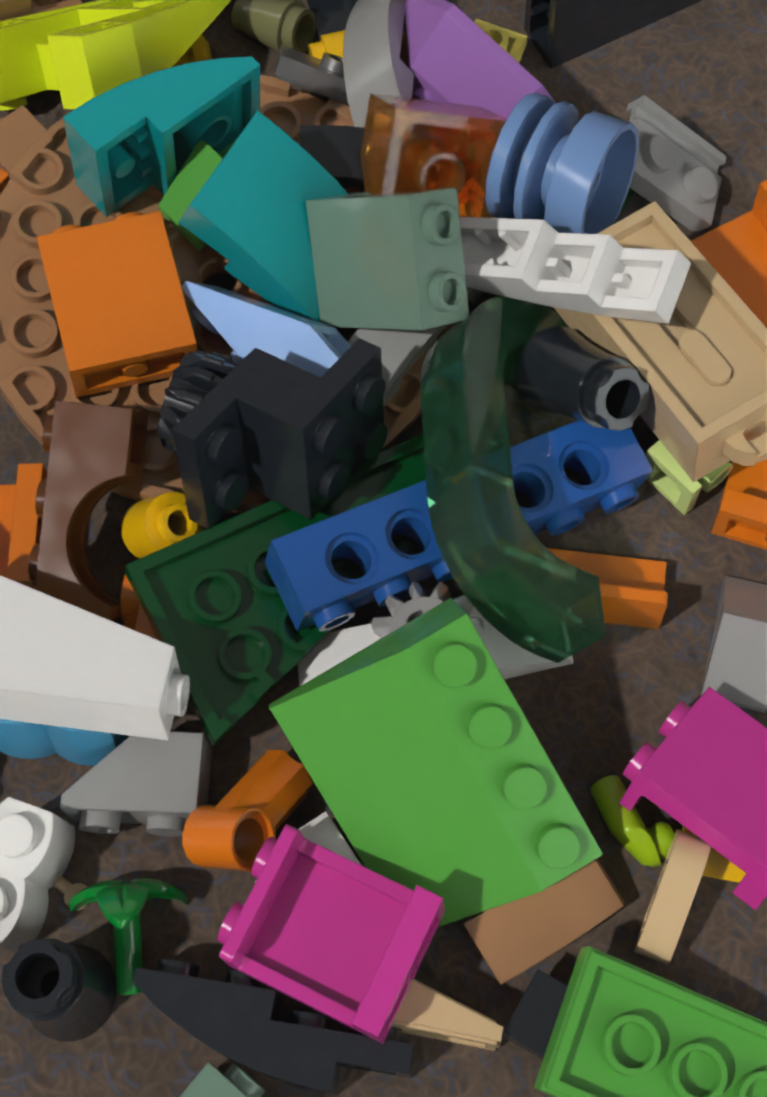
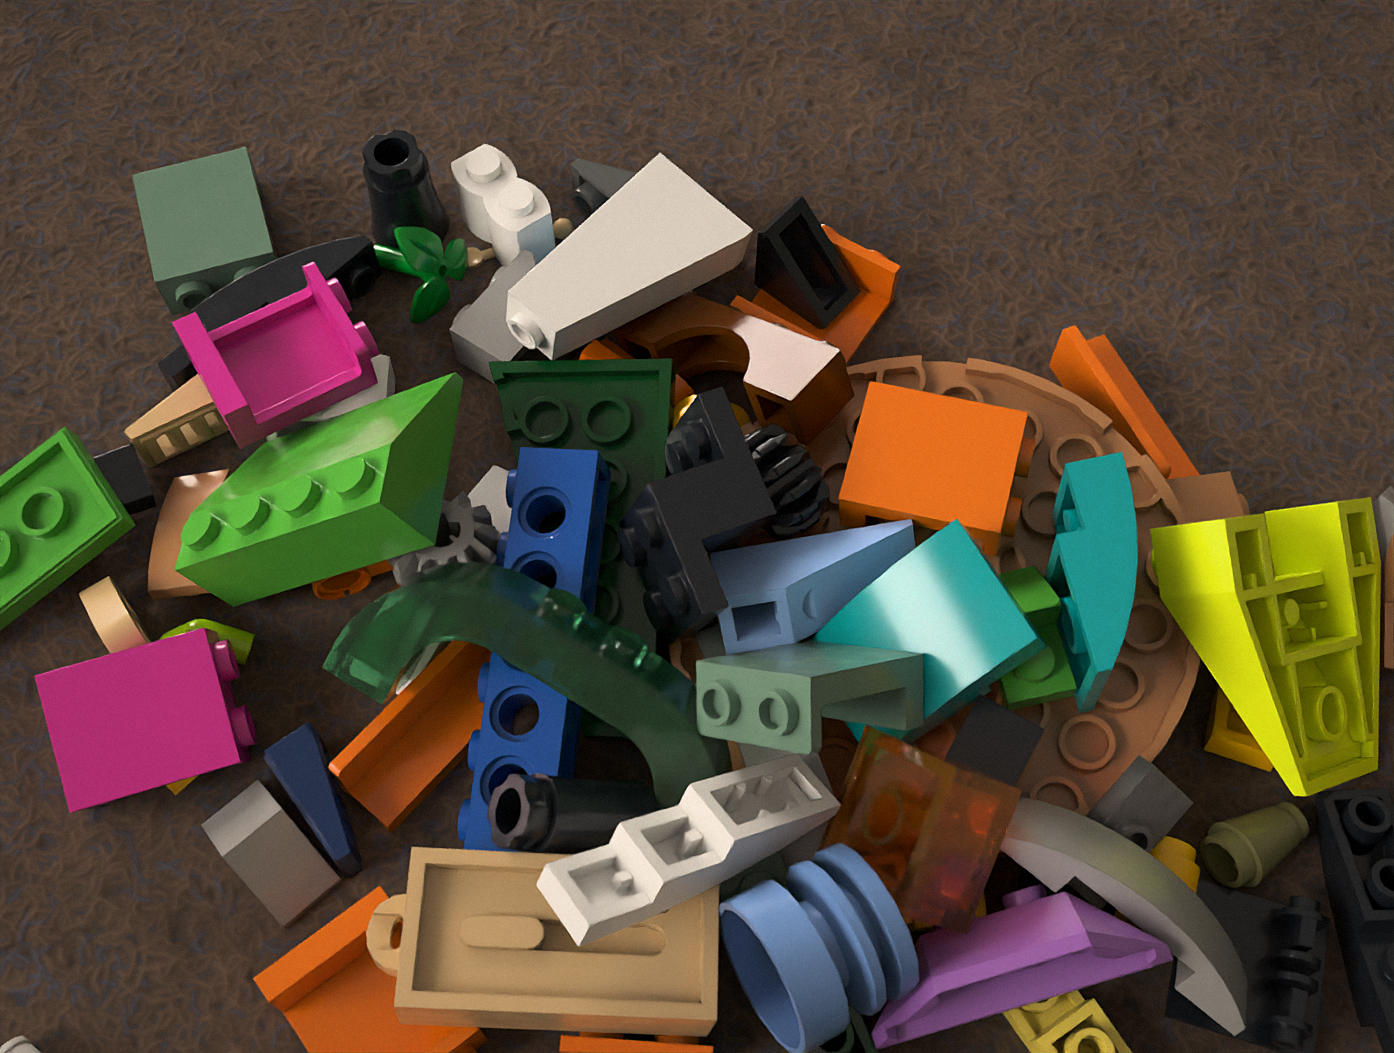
camera: 115 degrees right, 5 degrees down
(250, 813) = (416, 347): orange piece -> none
(676, 640) = (303, 770): none -> dark blue slope

